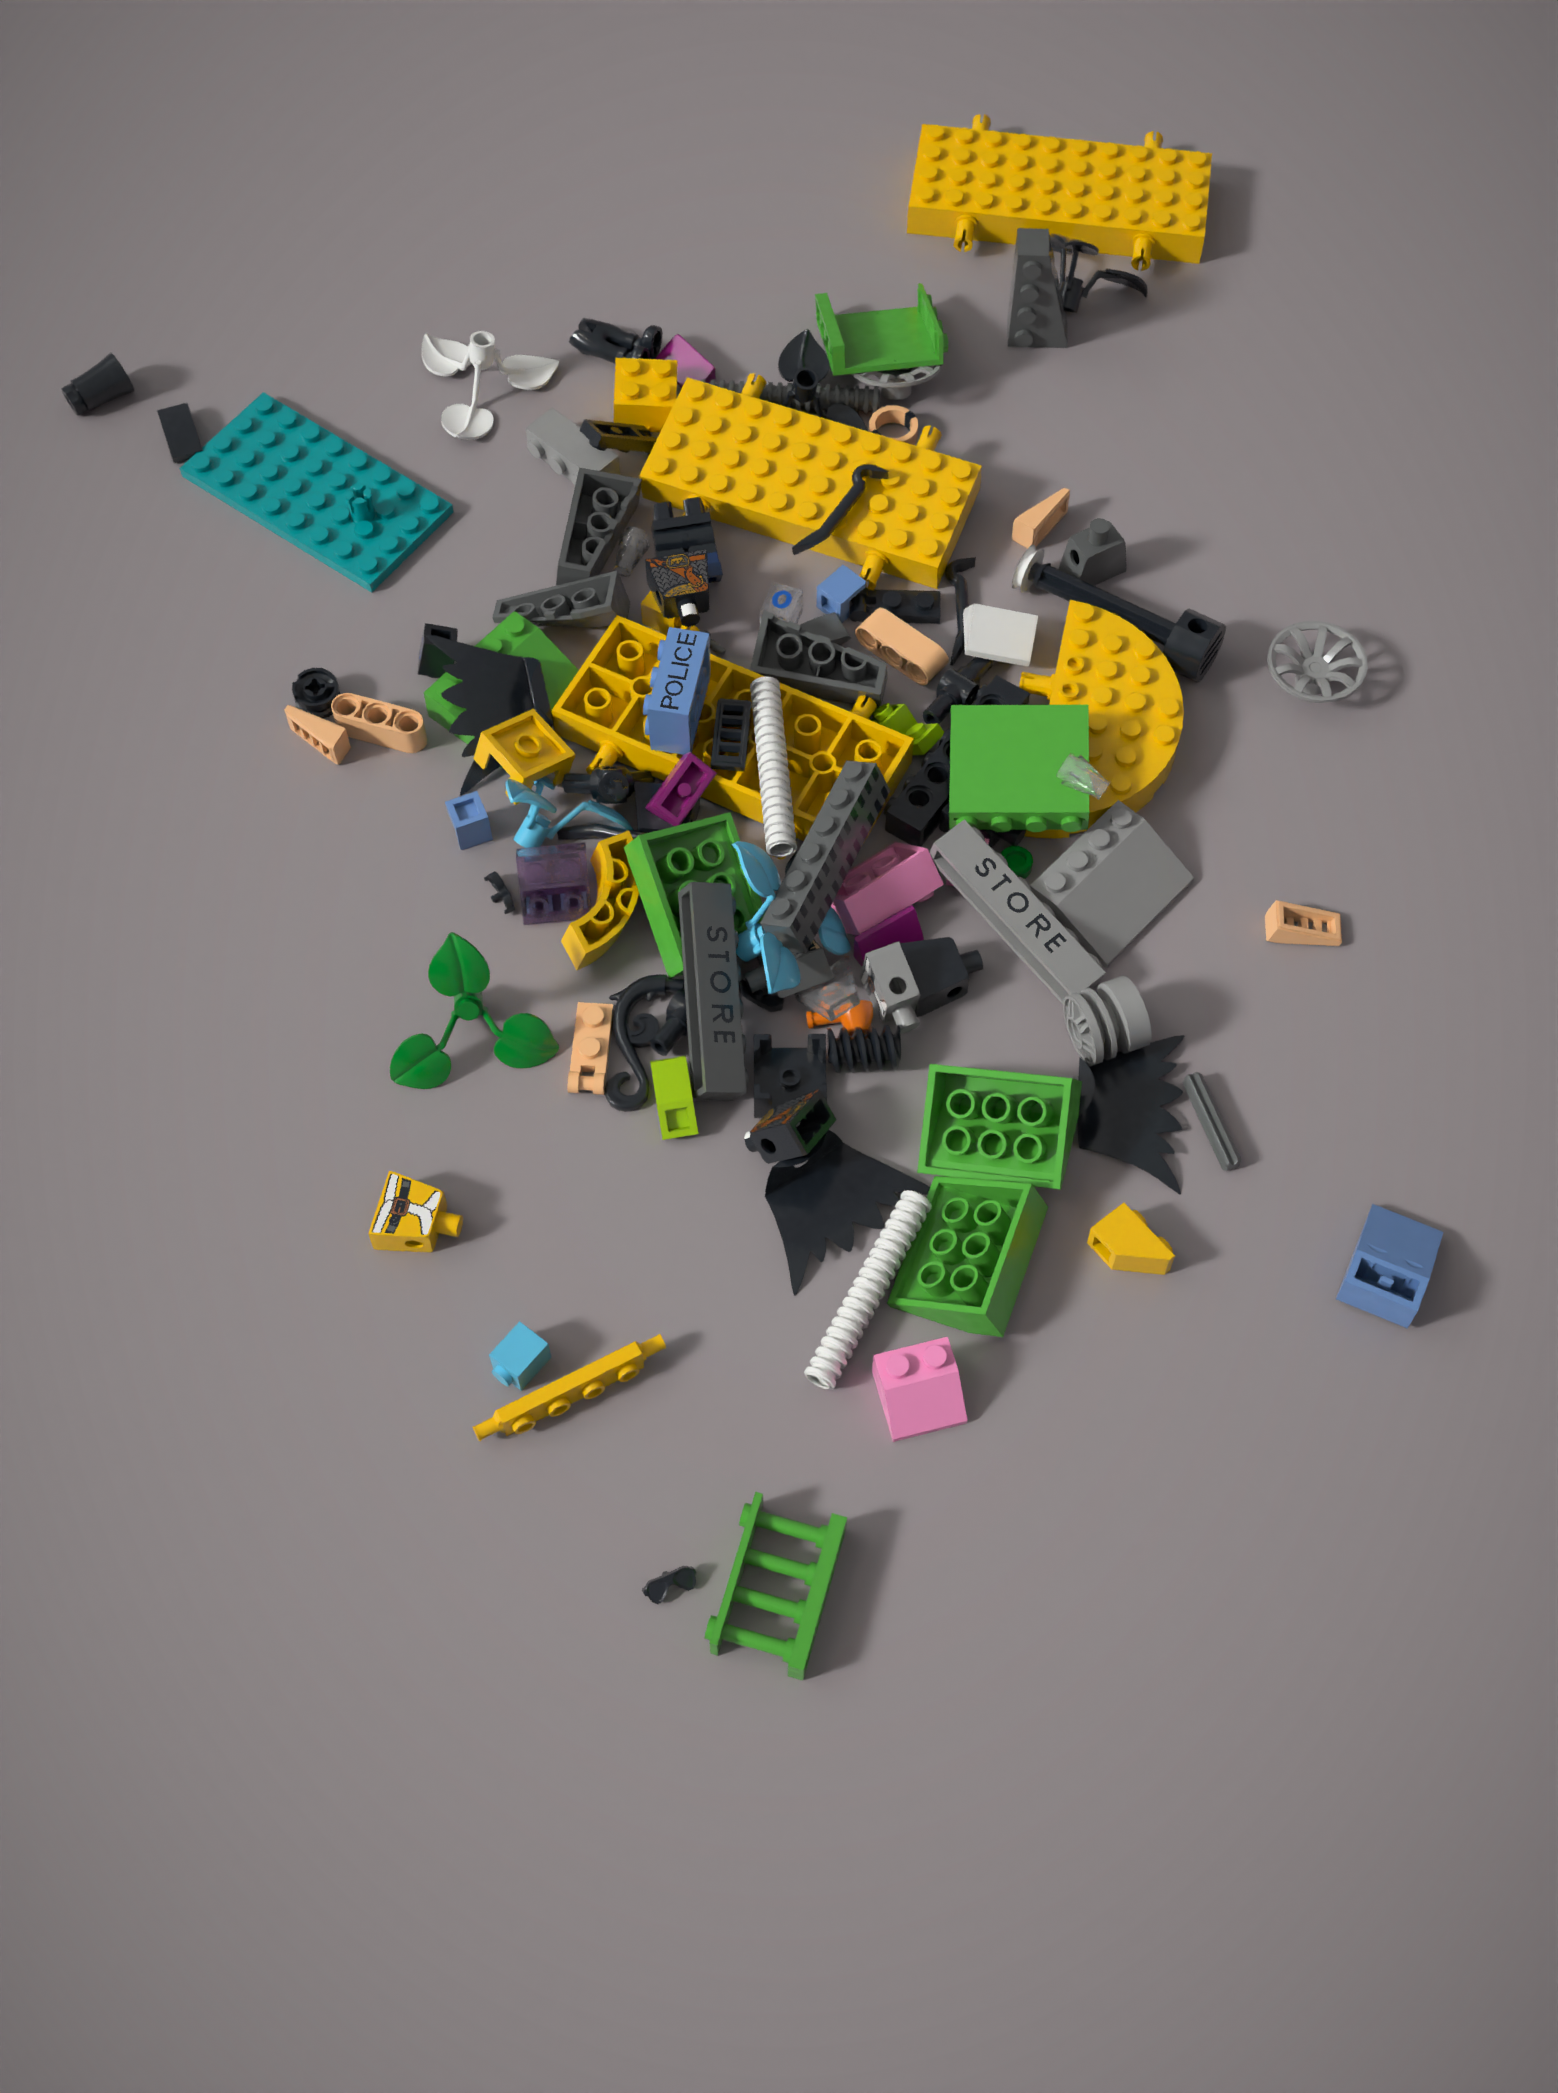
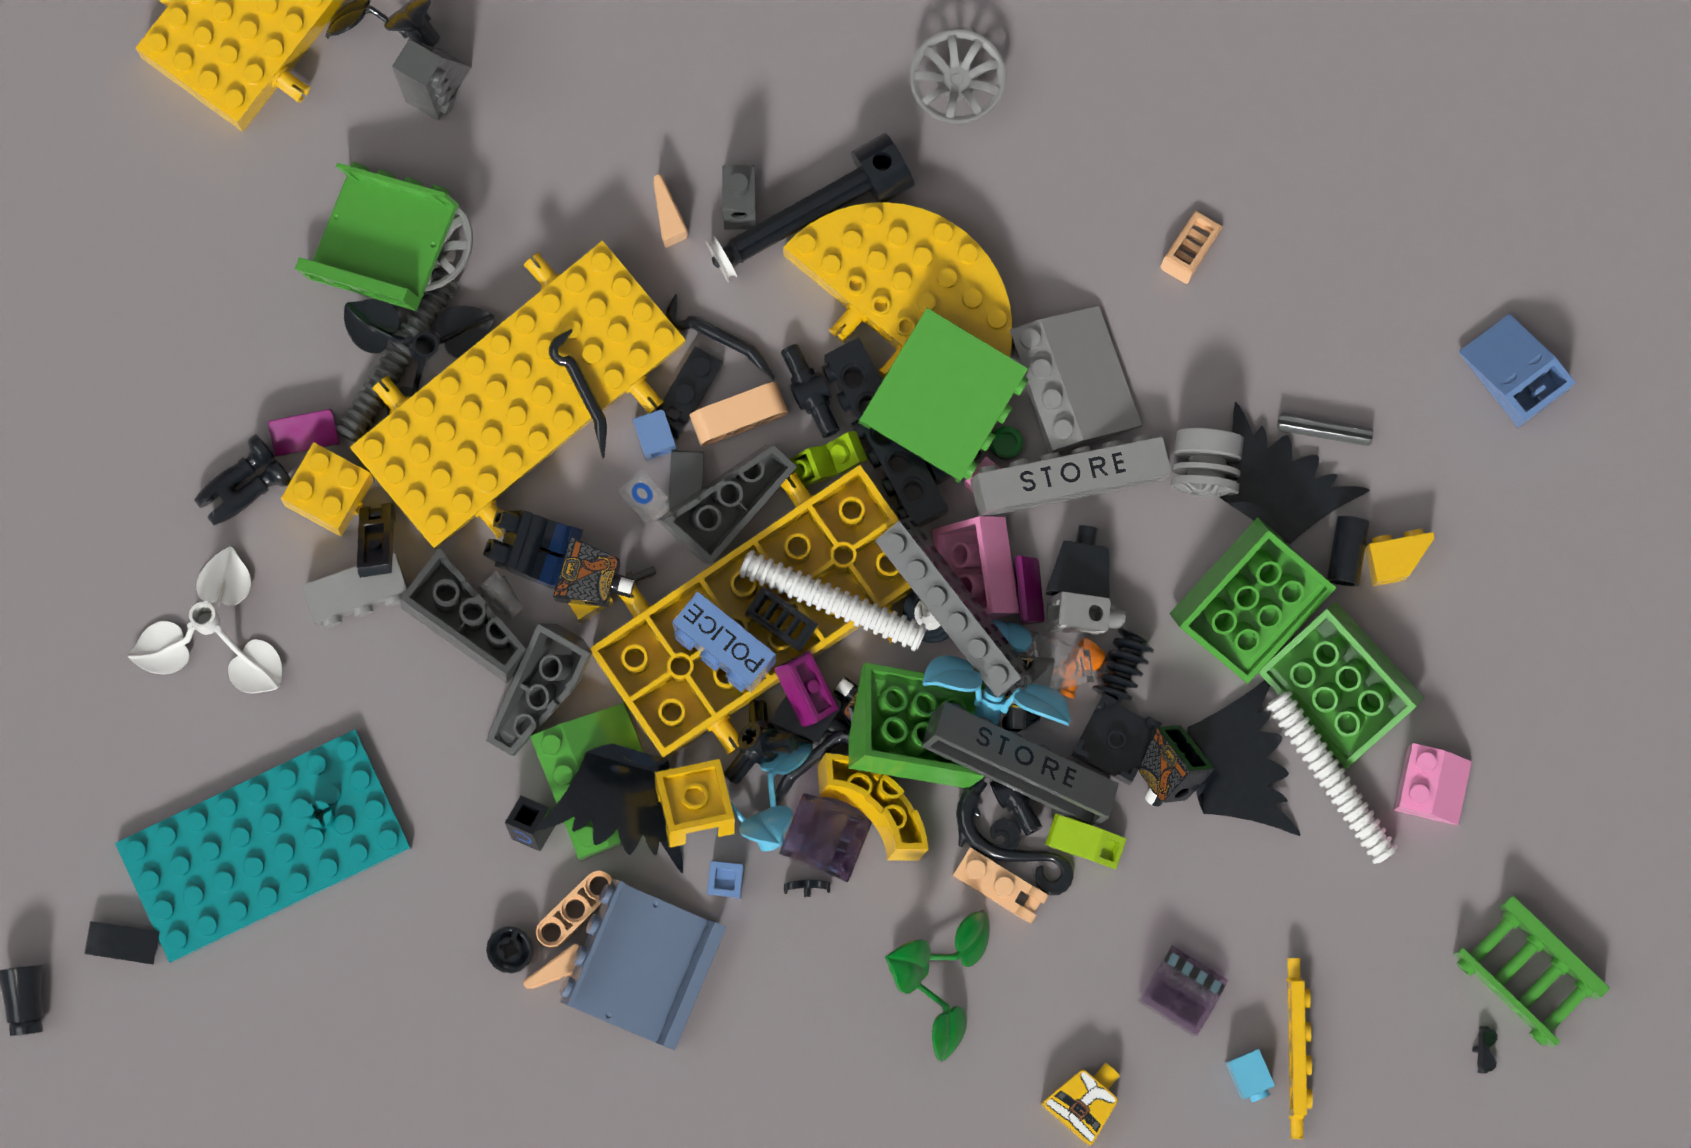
camera: 65 degrees left, 20 degrees up
(354, 784) = (641, 964): none -> sand blue panel
(571, 1250) = (1183, 991): none -> clear purple slope
(897, 415) = (496, 305): light nougat piece -> none
(999, 634) = (776, 324): white slope -> none
(1082, 776) = (998, 357): clear cone -> none
(1105, 1194) = (1348, 551): none -> black pin

